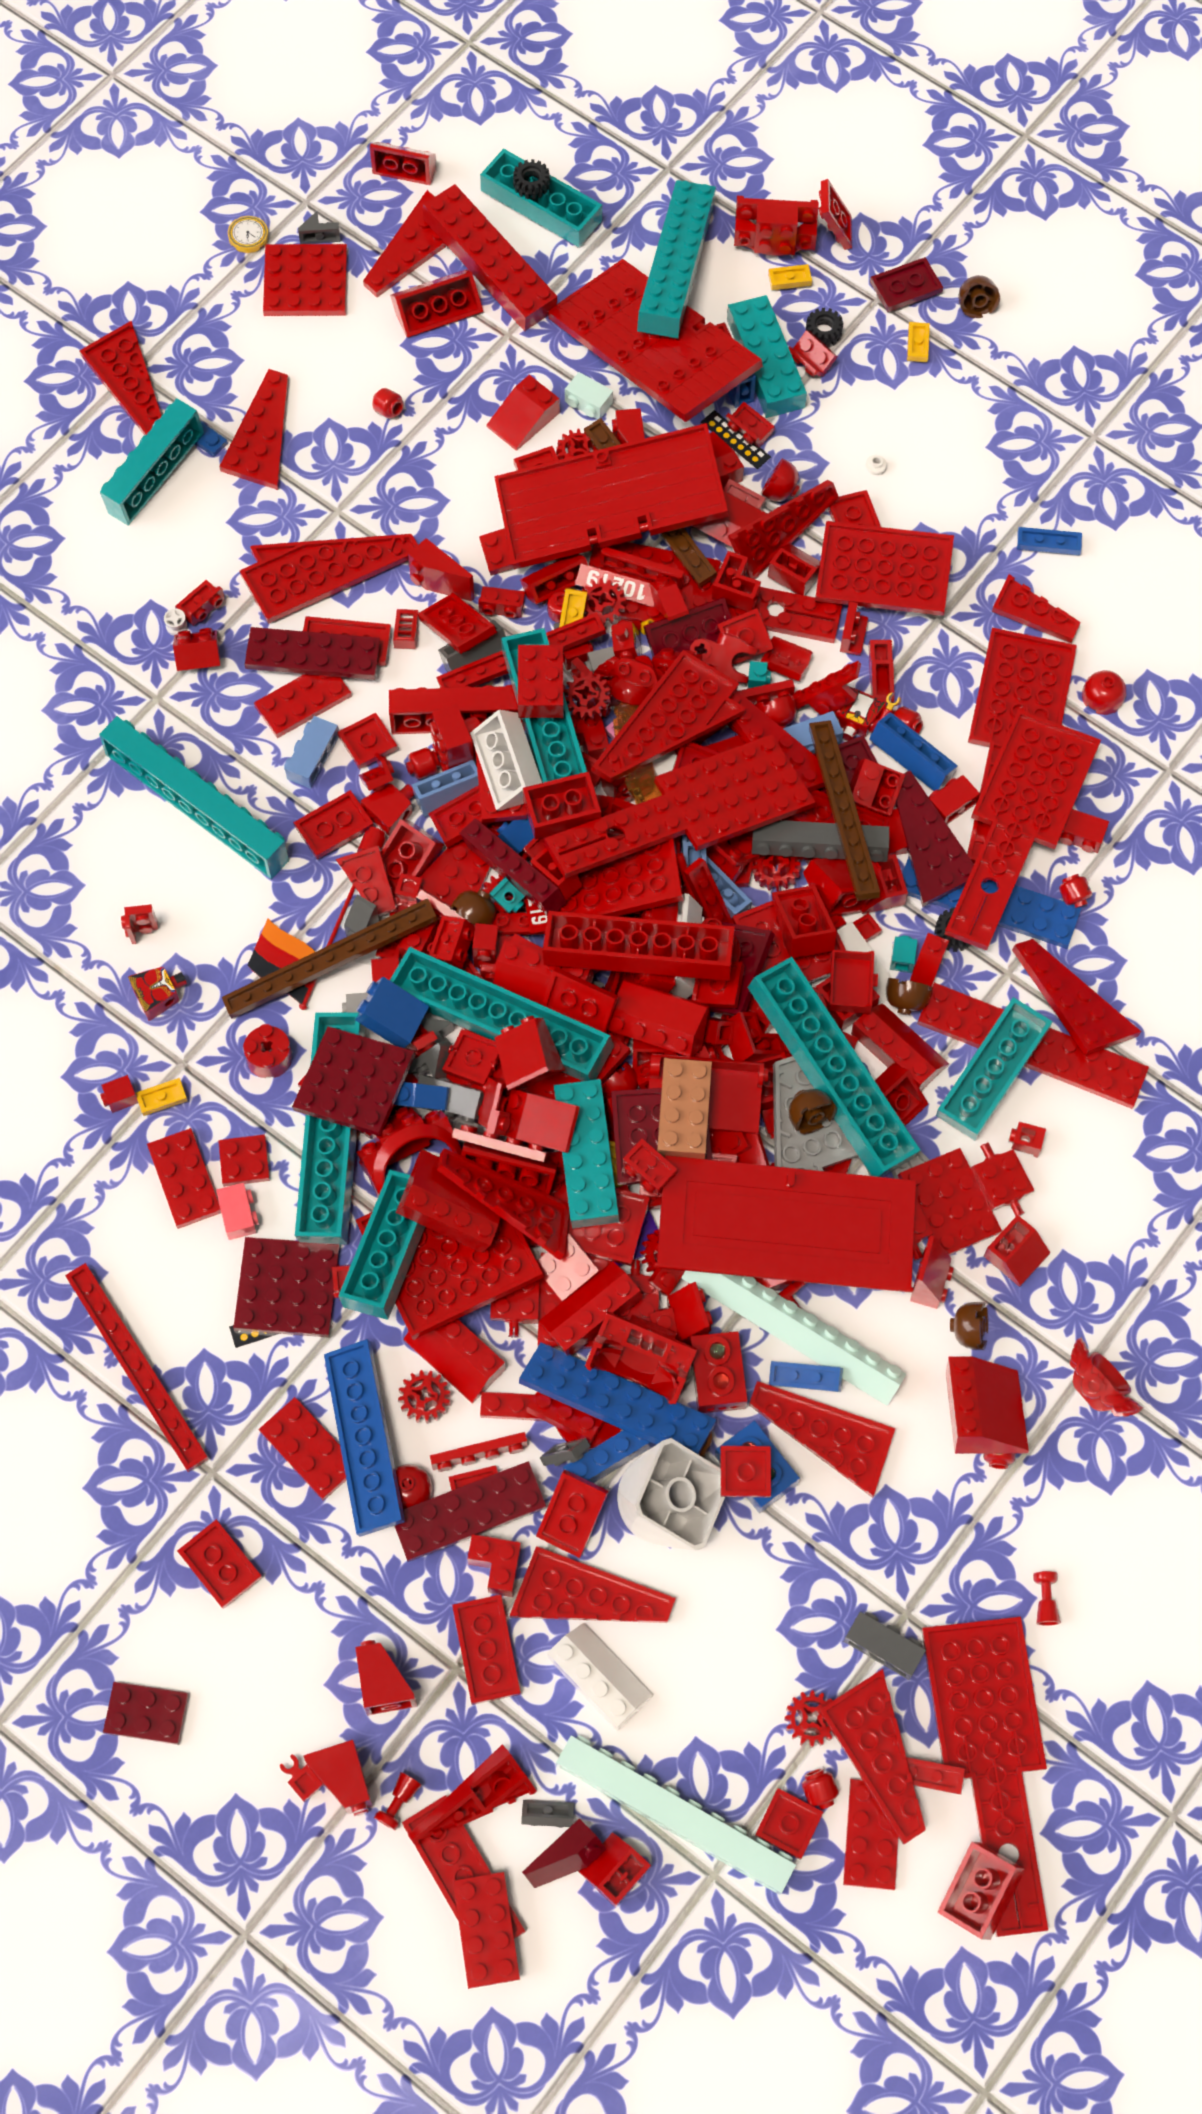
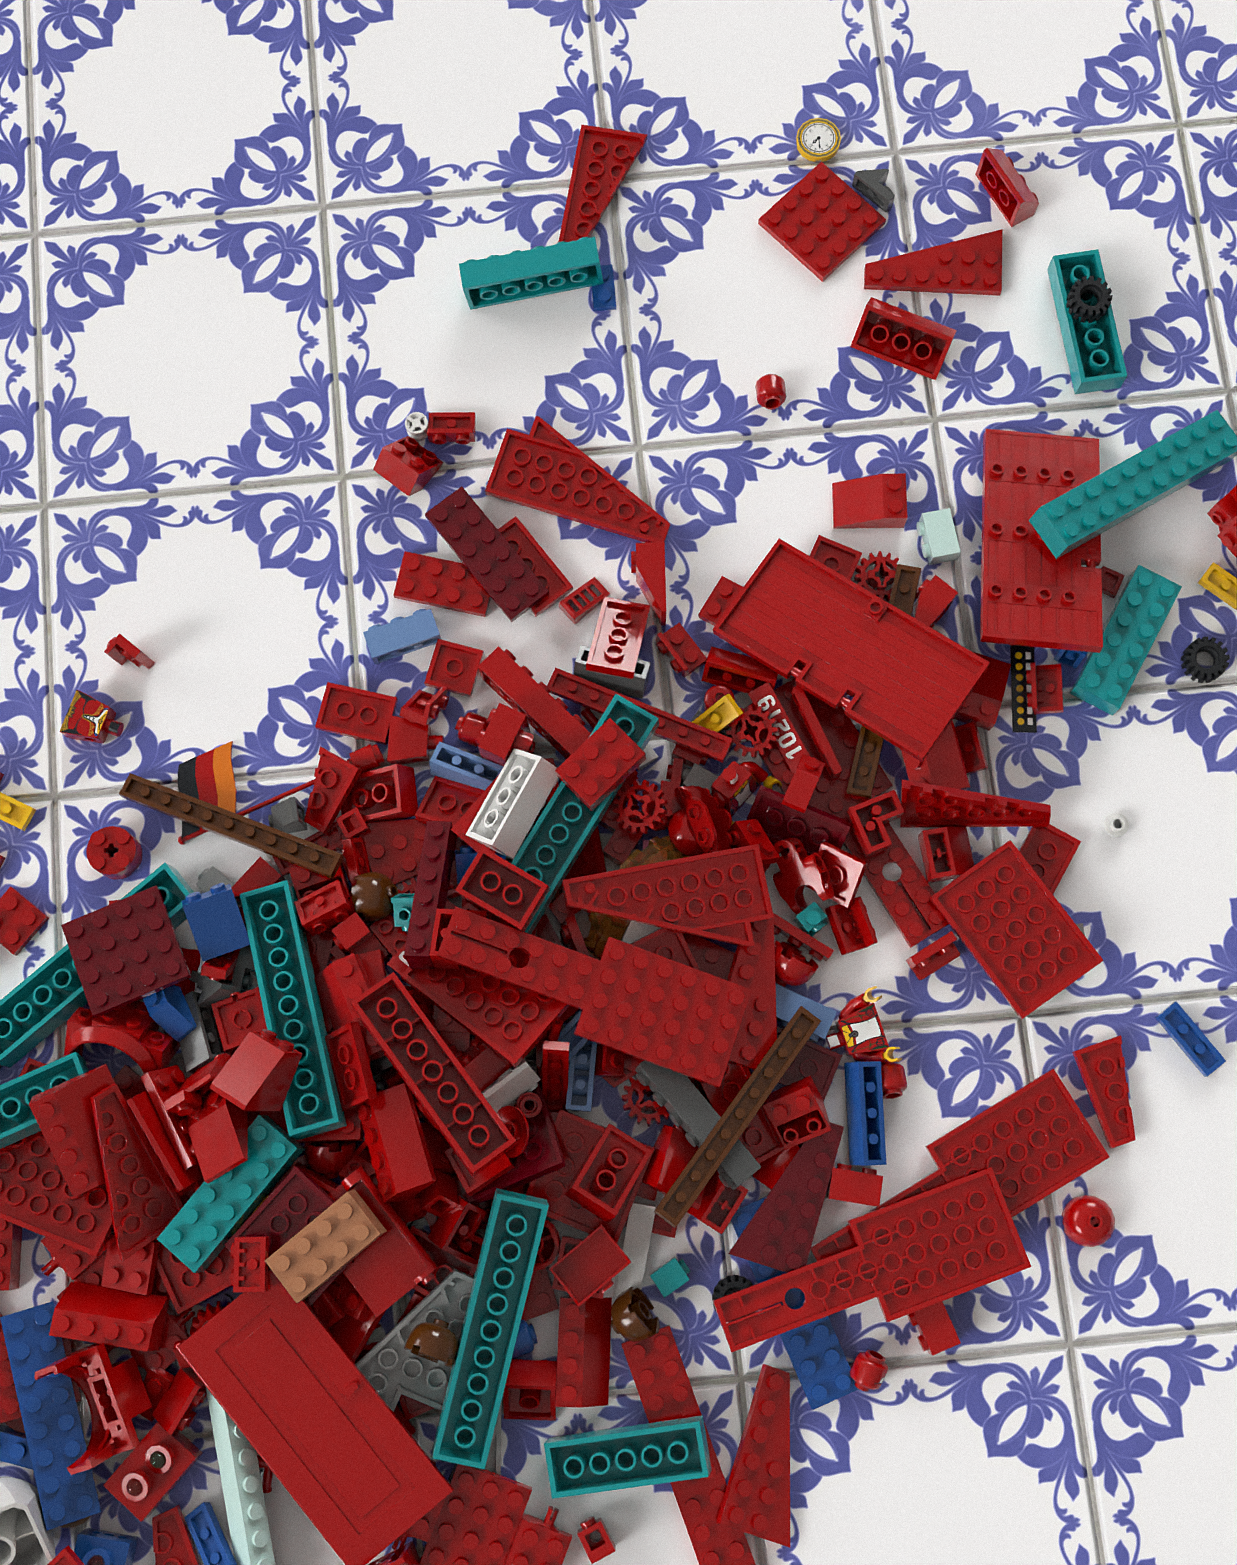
camera: 50 degrees right, 10 degrees up
(194, 797) = (274, 590): teal brick -> none
(259, 439) = (641, 329): red wing -> none
(489, 257) = (985, 337): red brick -> none
(782, 482) = (1015, 766): red cylinder -> none
(813, 354) = (1166, 675): bracket -> none
(830, 692) = (848, 993): red bracket -> none
(881, 668) = (919, 1014): red slope -> none
(929, 959) = (683, 1304): red slope -> none

